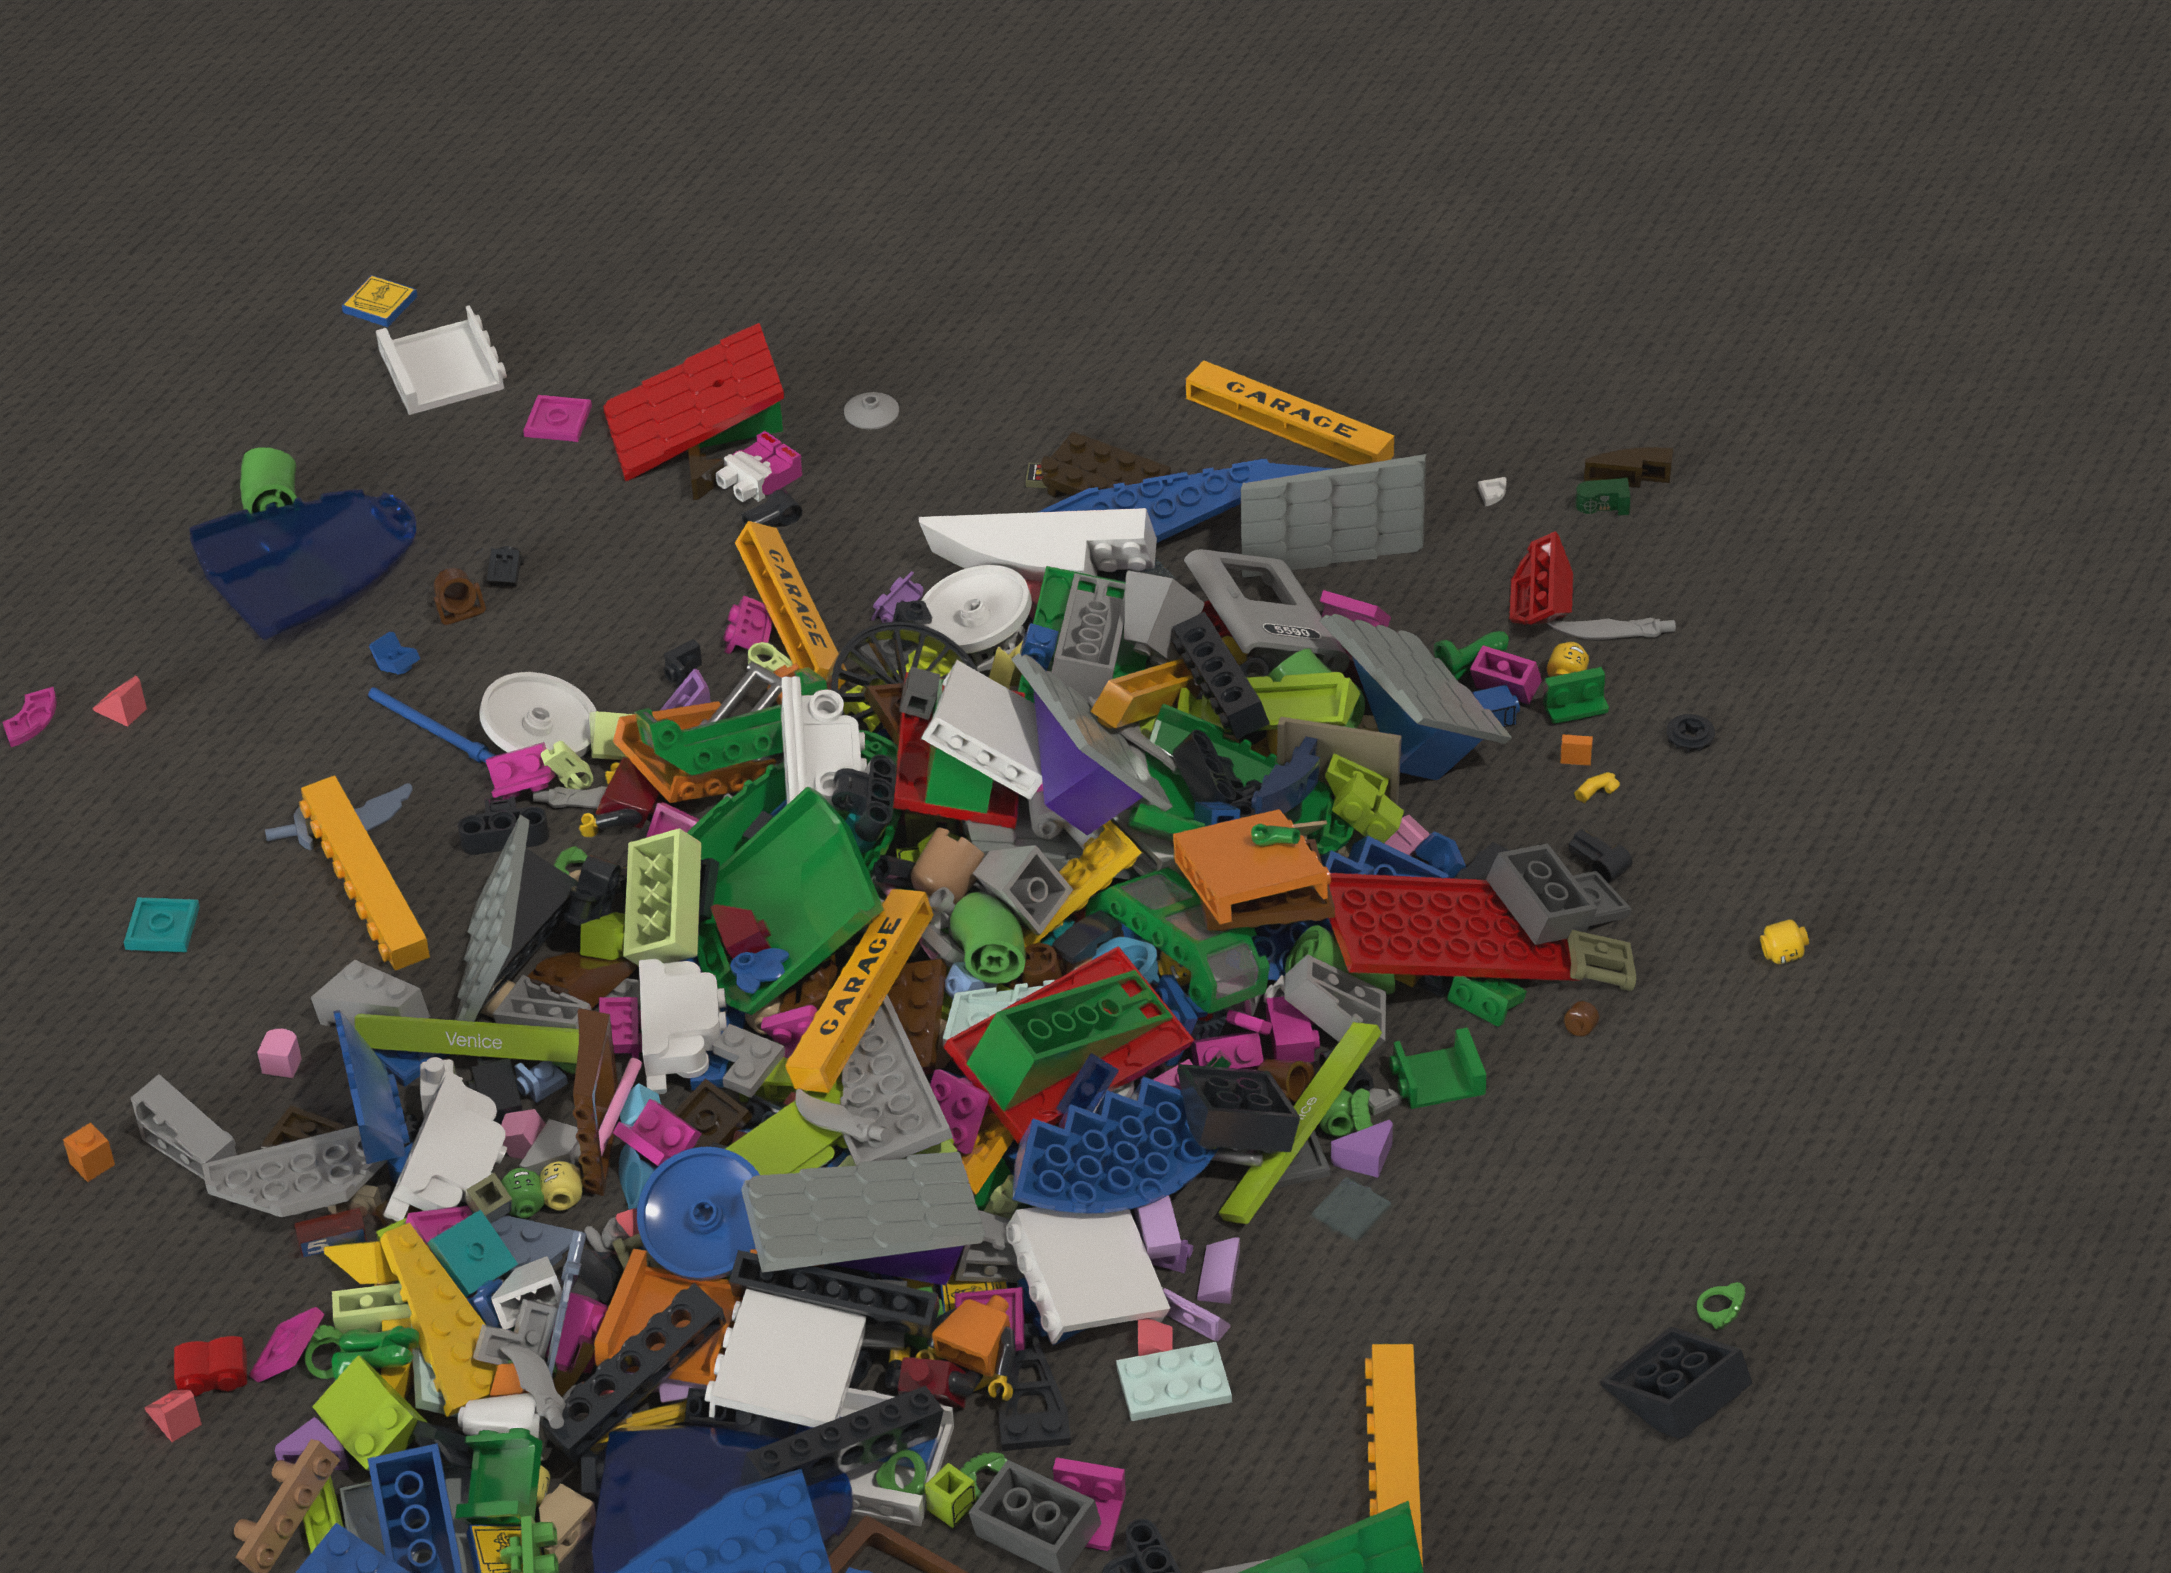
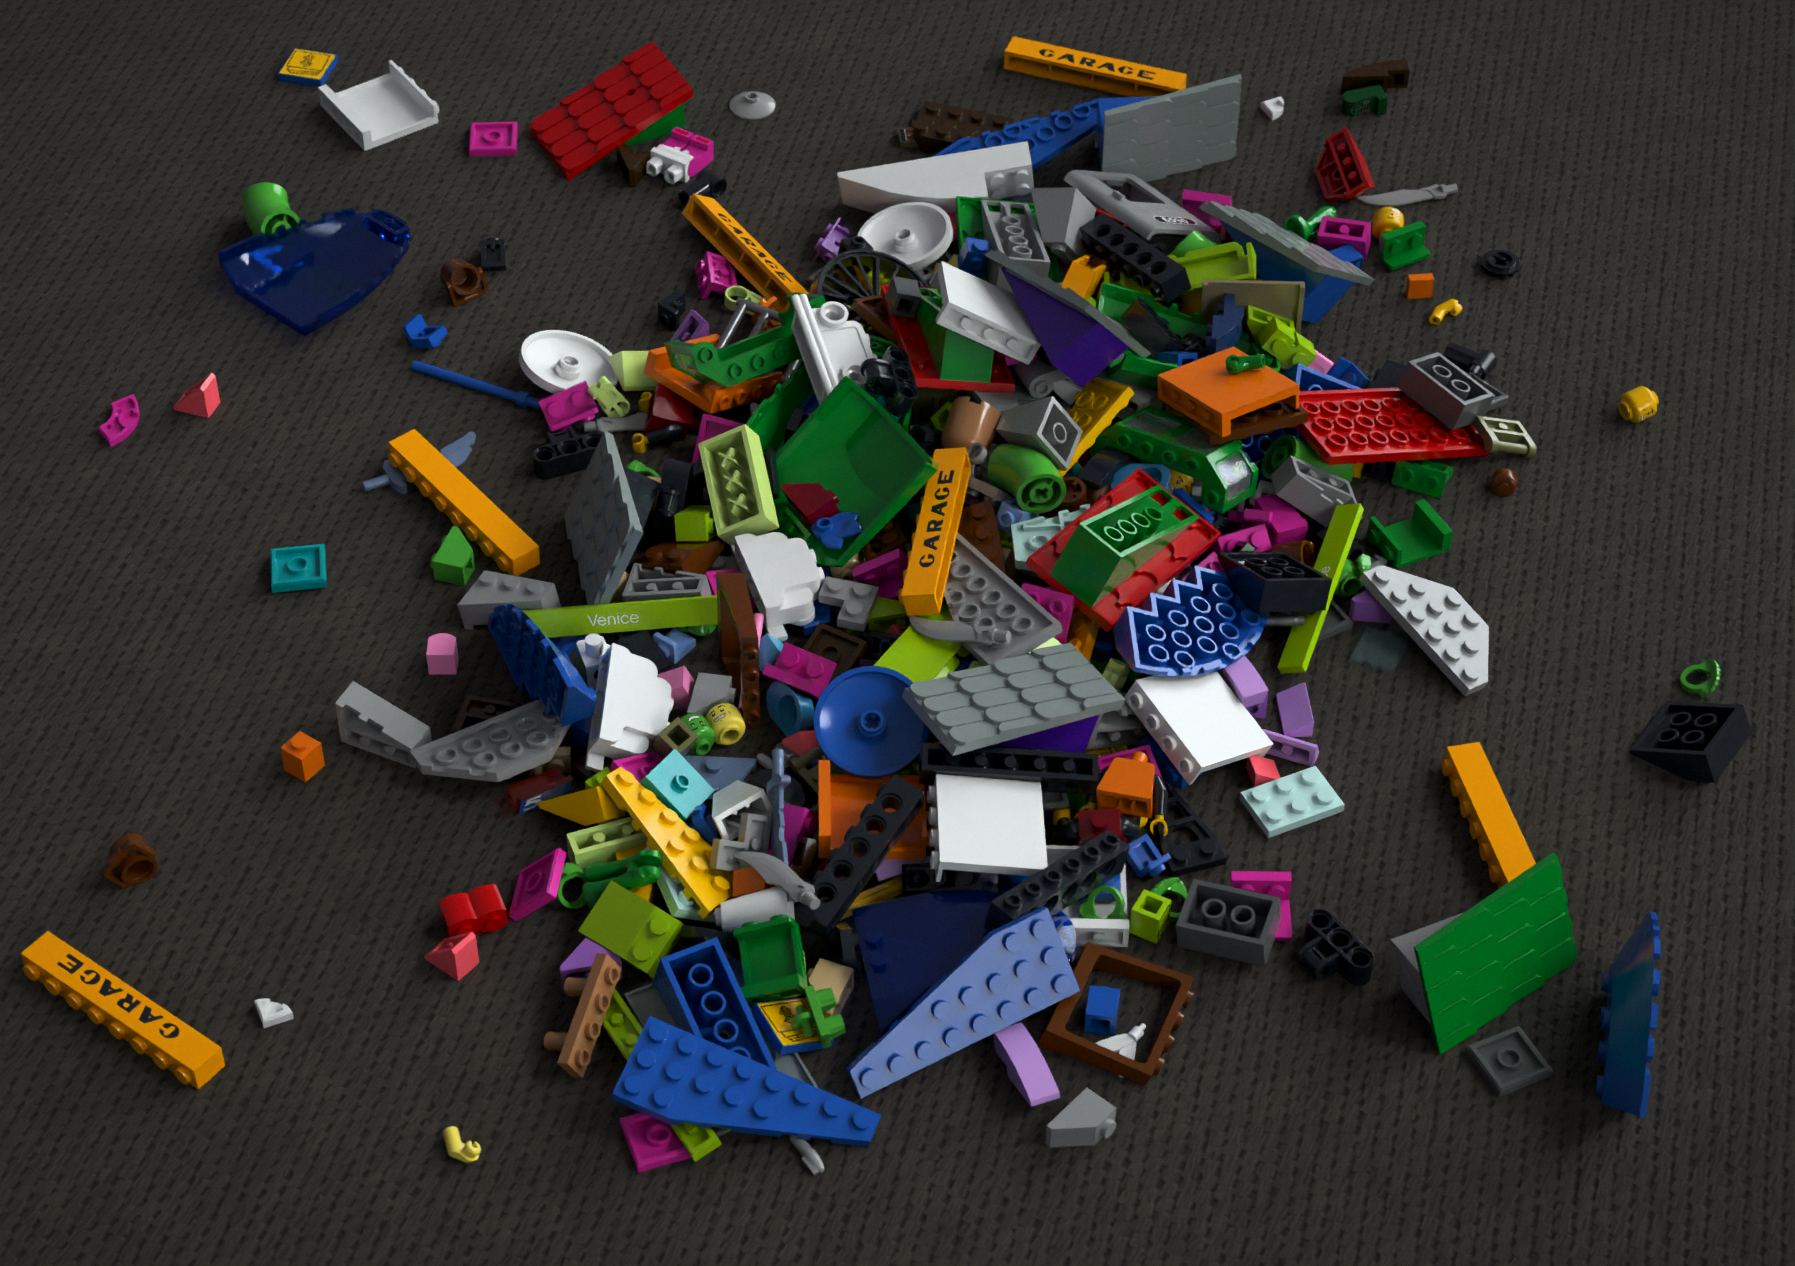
camera: 15 degrees left, 0 degrees up
(331, 939) = (454, 559): none -> bright green slope
(975, 1422) = (1145, 857): none -> blue bracket
(1089, 1085) = (1155, 576): clear blue slope -> none
(1426, 1187) = (1437, 622): none -> plate

